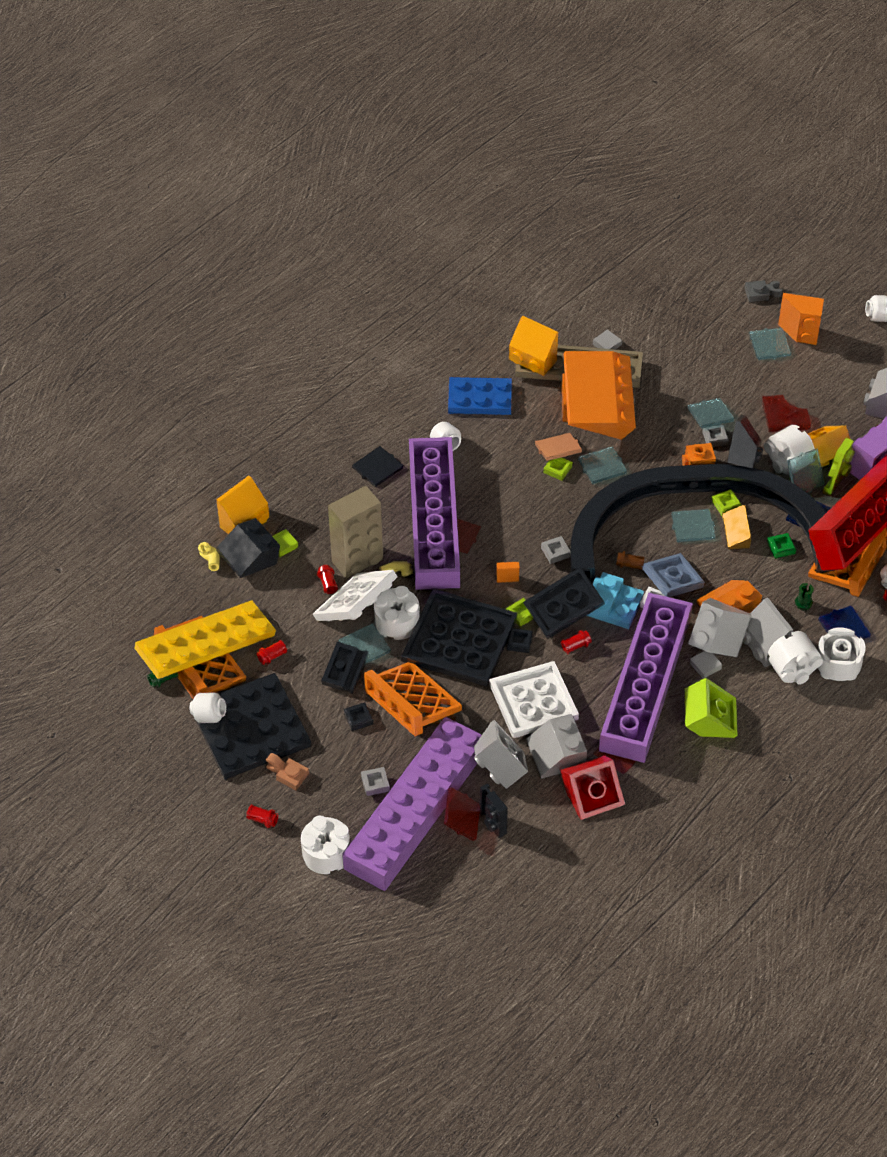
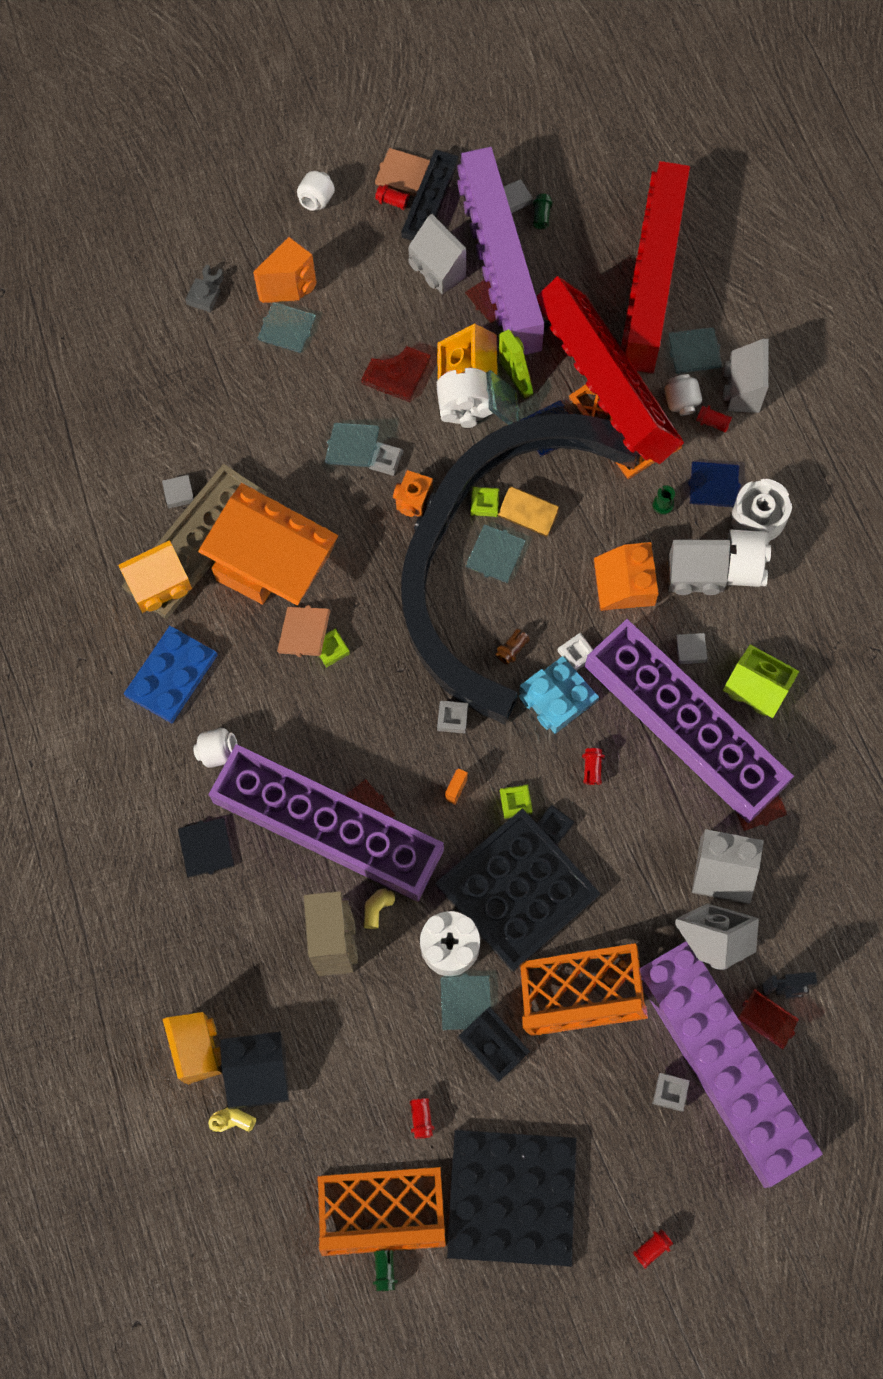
camera: 60 degrees left, 20 degrees up
(204, 639) = (368, 1196): yellow plate -> none
(208, 707) = (480, 1243): white head -> none
(286, 542) = (260, 1019): lime tile -> none
(288, 773) = (606, 1185): nougat plate -> none
(324, 844) = (754, 1196): white brick -> none
(326, 574) = (348, 996): red pin -> none
(355, 596) = (407, 981): white plate -> none
(358, 716) = (565, 1063): black tile -> none
(532, 698) = (648, 855): white plate -> none
(564, 603) = (542, 751): black tile -> none
(593, 786) = (796, 856): red slope -> none
(602, 465) = (354, 598): clear light blue piece -> none
(673, 575) = (559, 614): sand blue plate -> none
(720, 628) = (667, 610): light grey slope -> none
(745, 444) = (436, 440): black slope -> none
(781, 545) = (575, 481): green tile -> none

